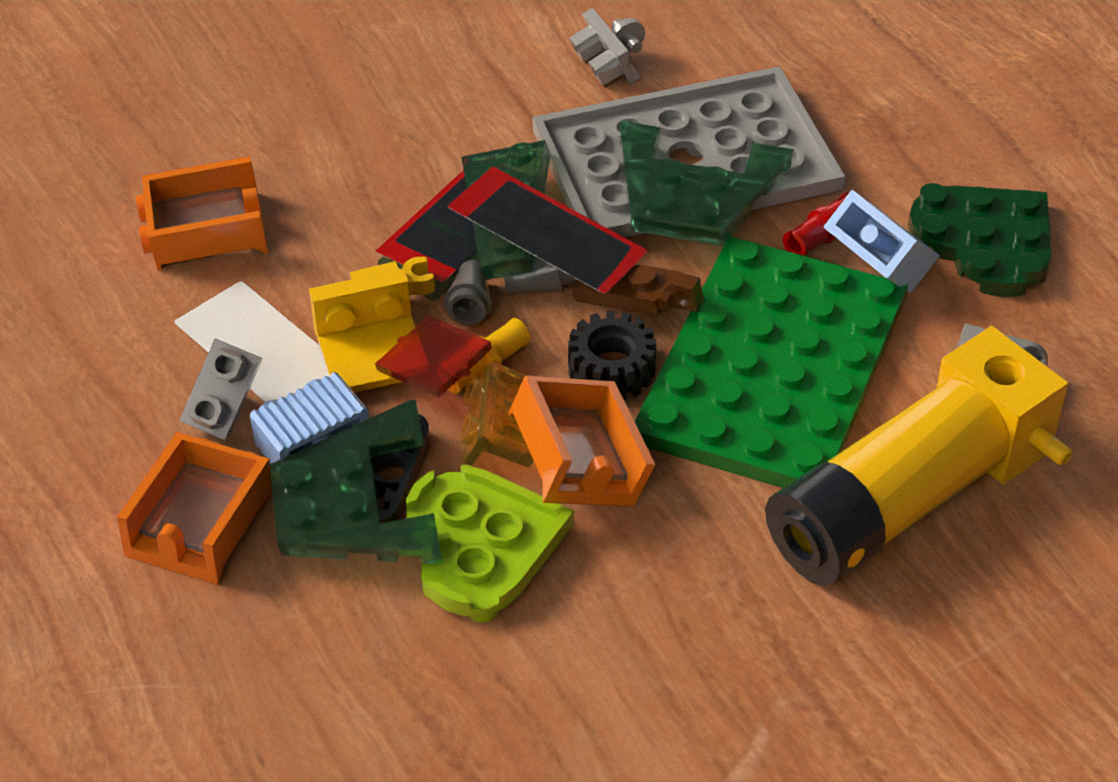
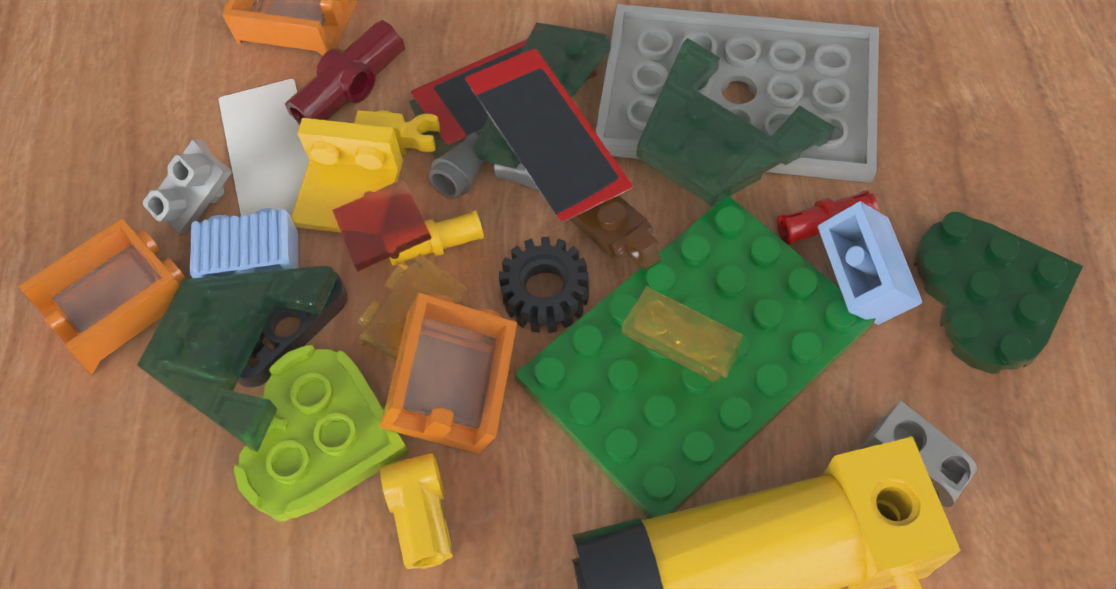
camera: 30 degrees right, 15 degrees up
(303, 256) = (346, 74): none -> dark red piece
(605, 543) = (415, 496): none -> yellow piece
(768, 333) = (683, 335): none -> clear yellow bracket

